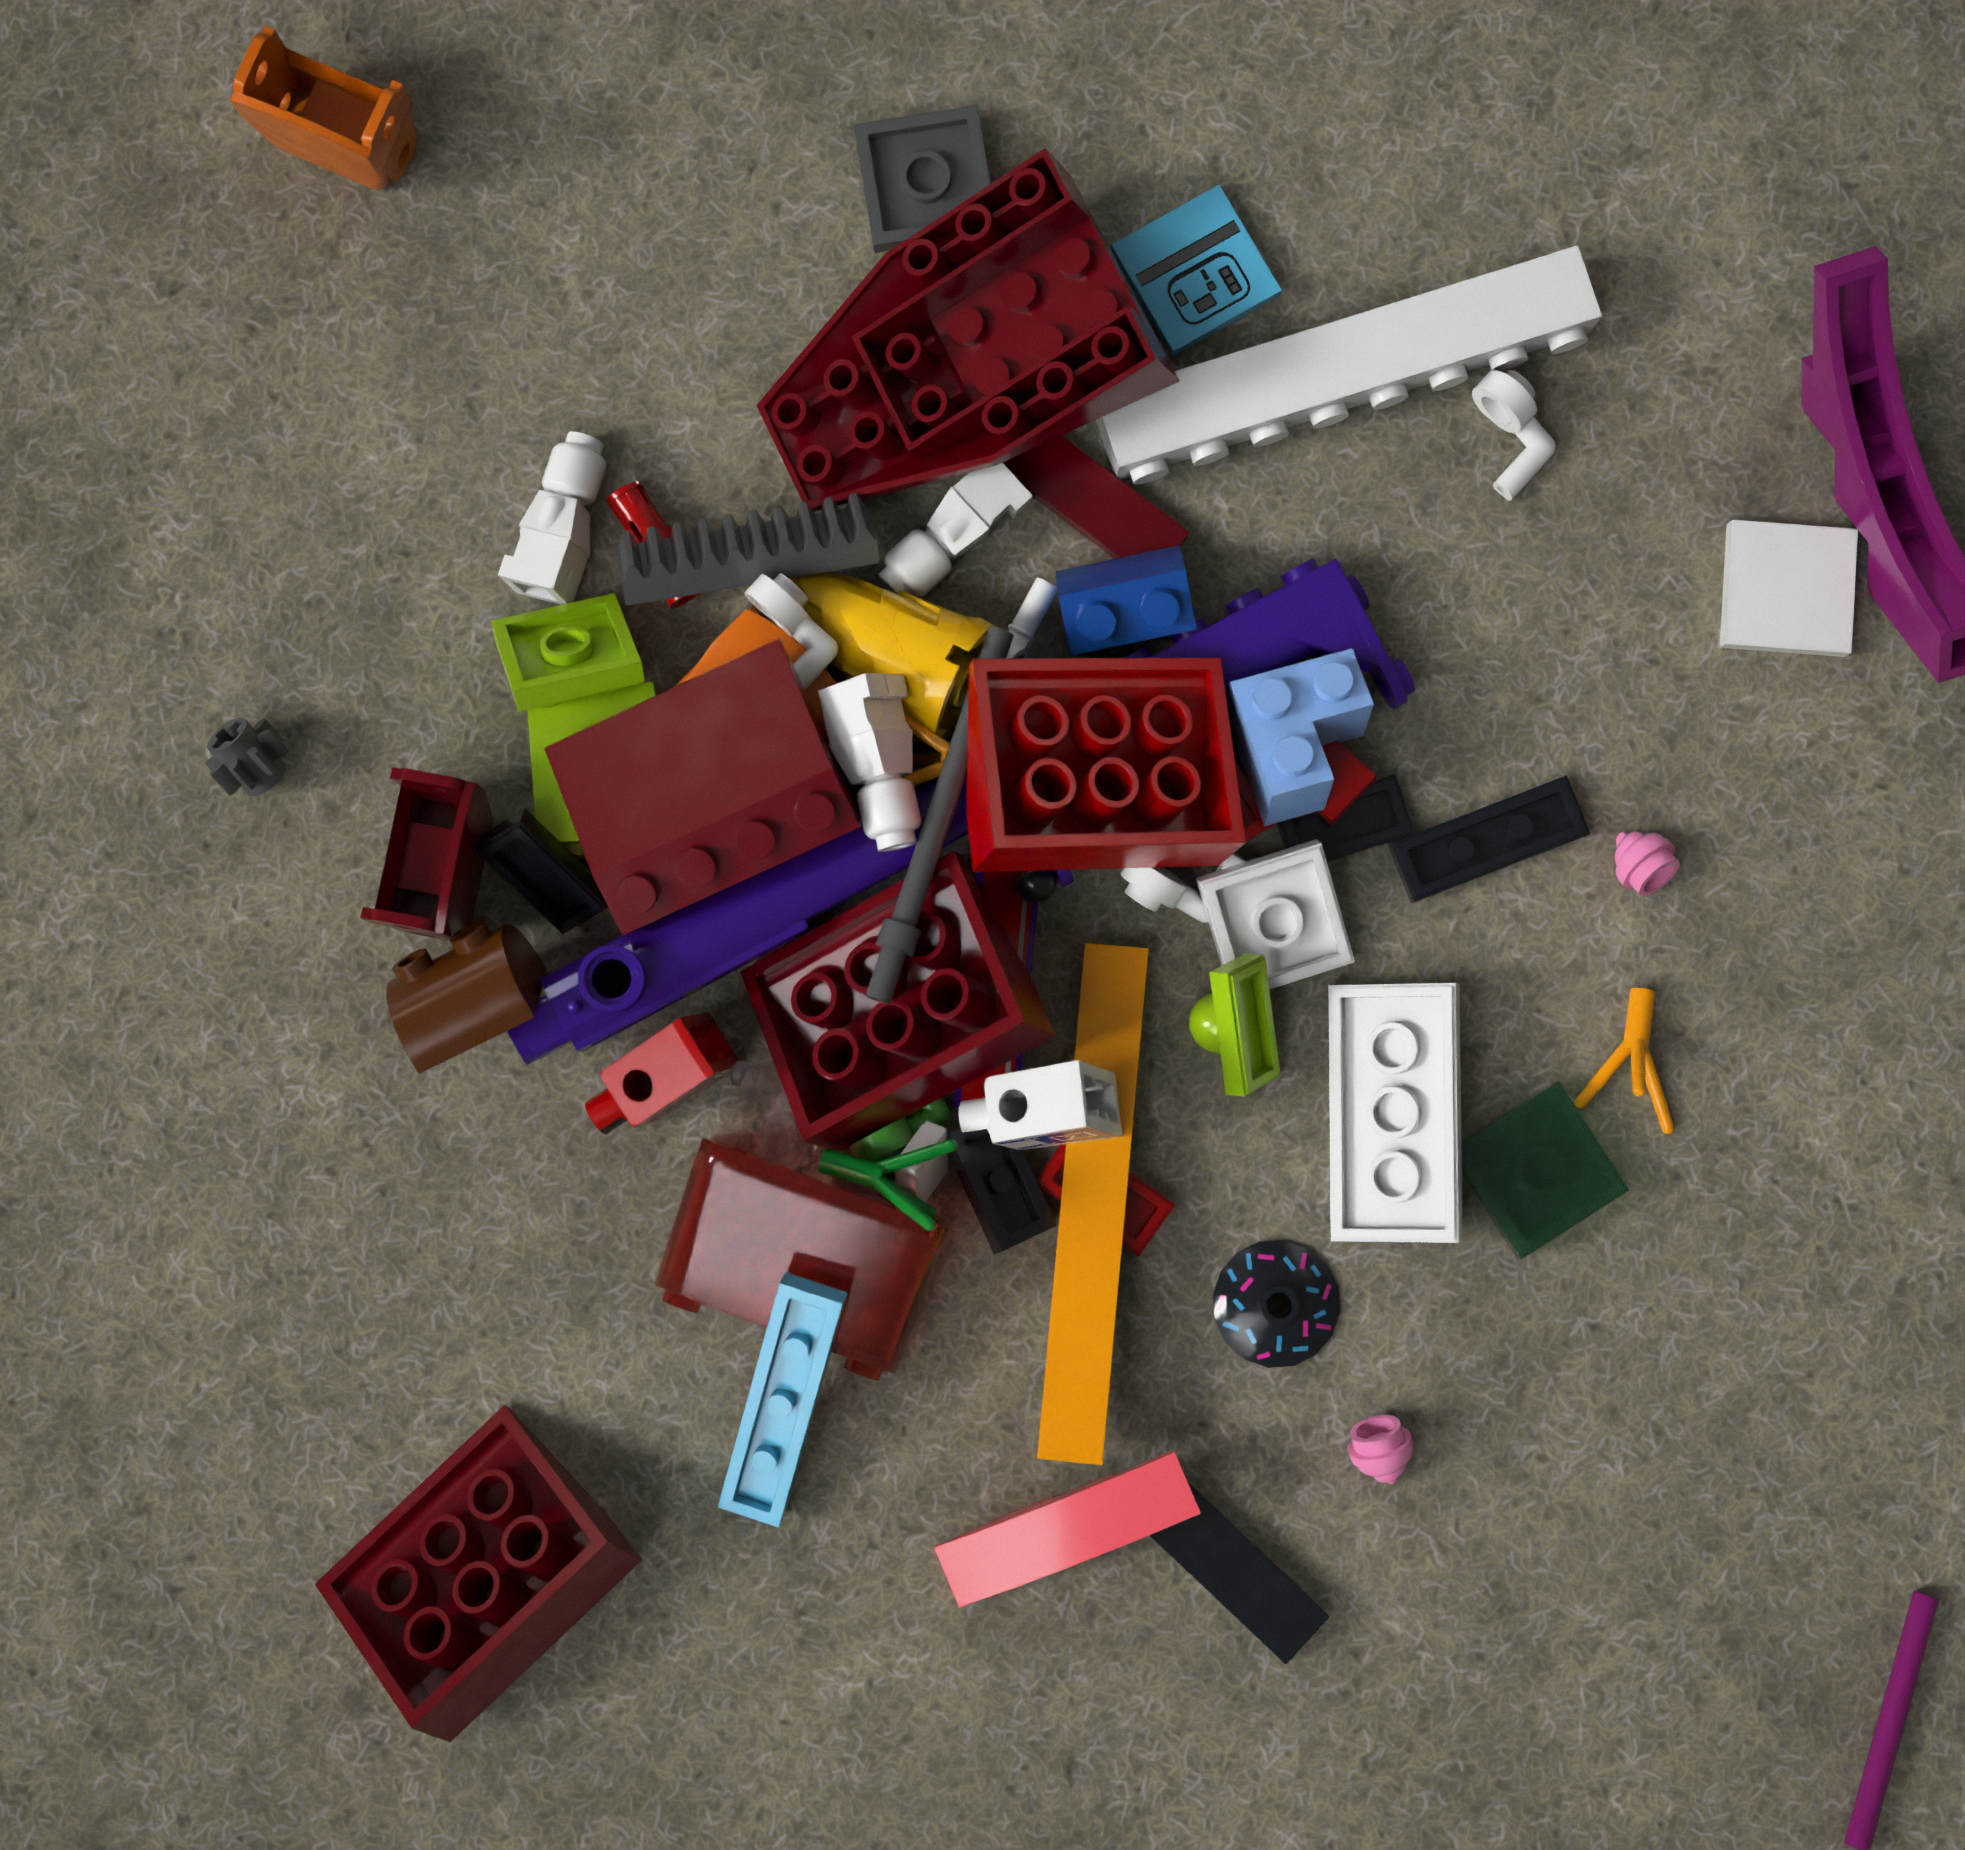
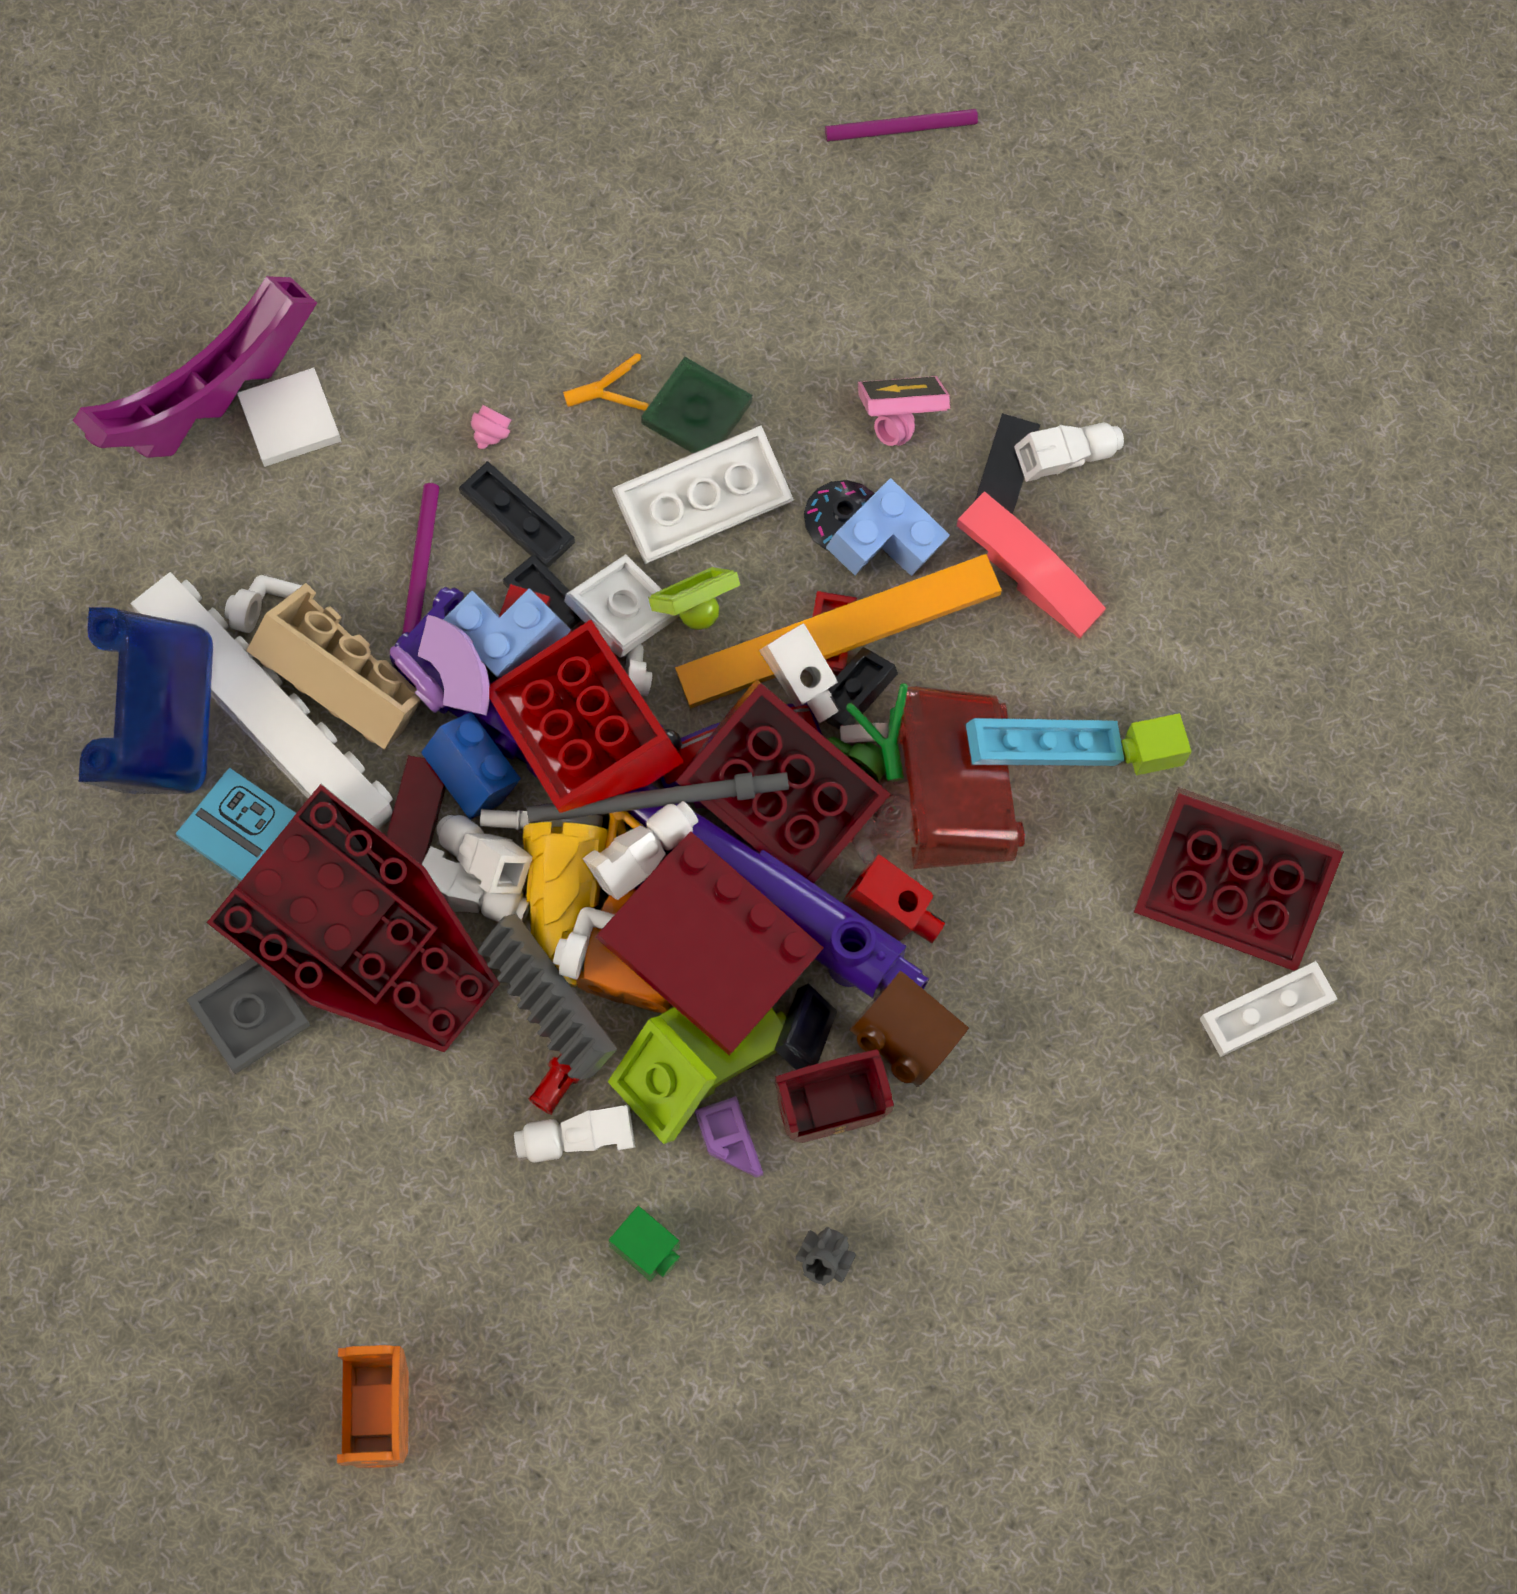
camera: 120 degrees left, 15 degrees down
(279, 1514) = (1268, 1008): none -> white plate
(375, 540) = (646, 1244): none -> green brick
(468, 714) = (728, 1135): none -> medium lavender tile
(716, 1563) = (1156, 744): none -> lime brick
(986, 560) = (491, 858): none -> white piece
(1223, 1682) = (1066, 447): none -> white piece
(1224, 1349) = (888, 523): none -> light blue brick
(1261, 586) = (427, 688): none -> medium lavender piece
(1272, 636) = (459, 665): none -> lavender tile
(1341, 478) = (334, 668): none -> tan wedge
(1404, 212) = (158, 708): none -> clear blue windscreen
(1414, 1478) = (903, 396): none -> tile
(1480, 677) = (421, 557): none -> magenta bar

